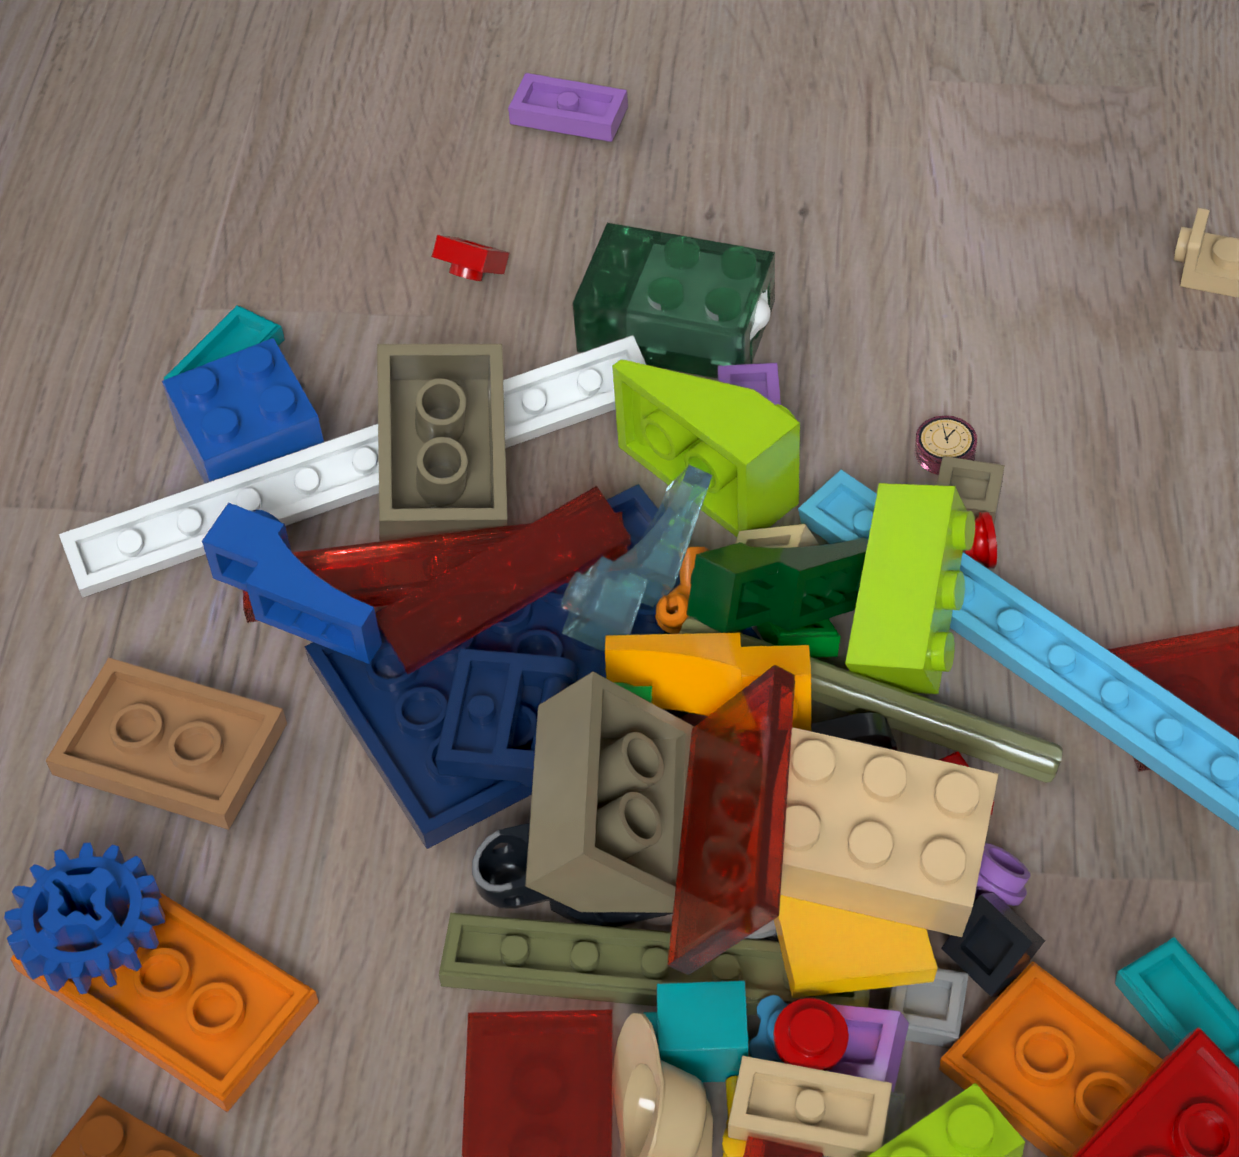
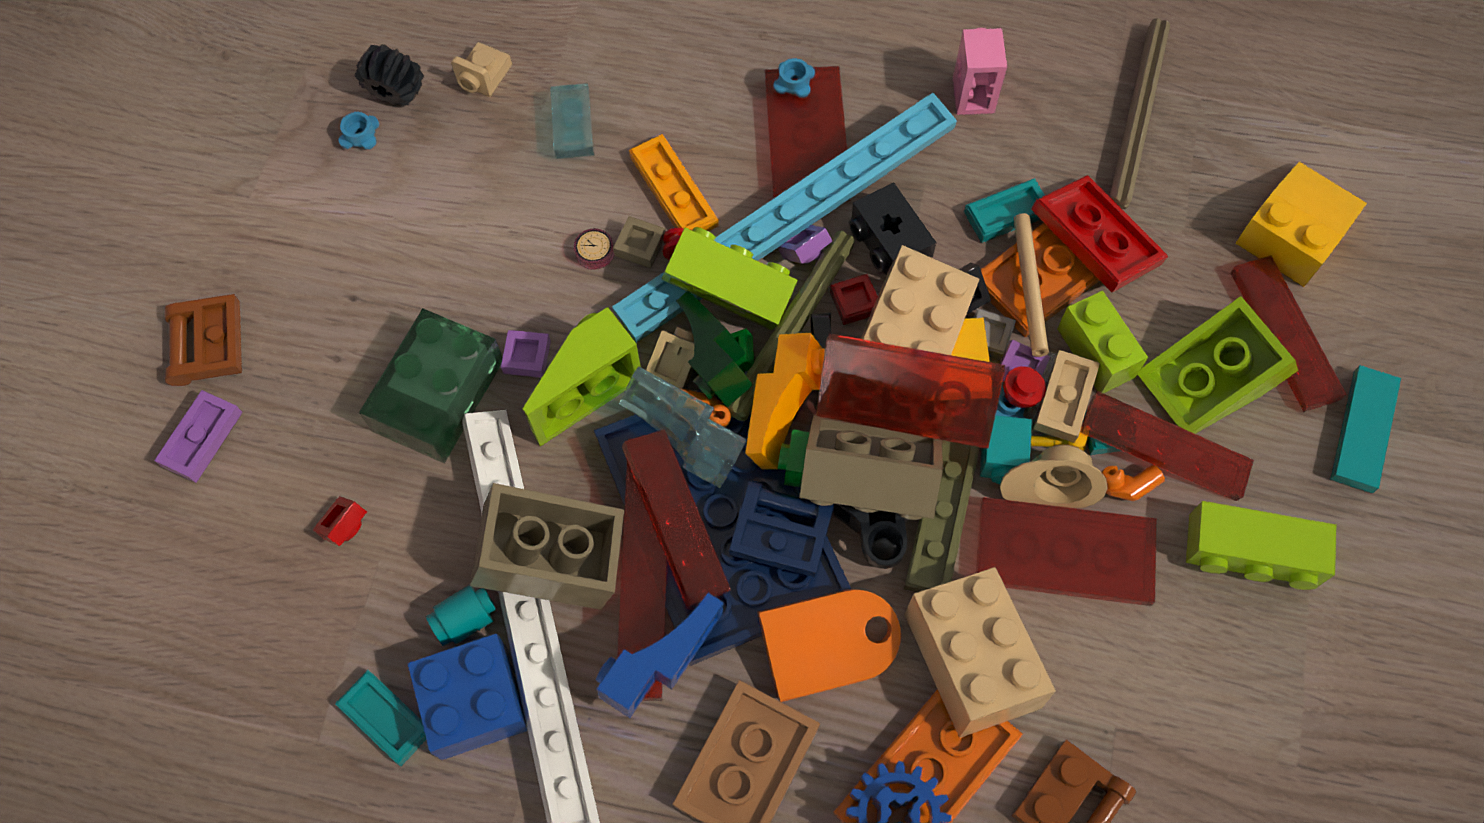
camera: 85 degrees left, 15 degrees up
(337, 1003) = (978, 652): none -> tan brick
(345, 805) = (824, 642): none -> orange tile
(348, 392) = (461, 615): none -> teal brick
(703, 82) = (215, 339): none -> dark orange plate
(1019, 703) = (806, 245): none -> medium lavender plate
(1023, 1037) = (1031, 286): none -> tan piece
(1062, 152) = (355, 123): none -> dark azure plate
(1079, 821) = (886, 223): none -> black brick
(1084, 525) = (672, 185): none -> light orange tile
(1153, 152) = (389, 75): none -> black gear
(1160, 376) = (572, 121): none -> clear light blue plate

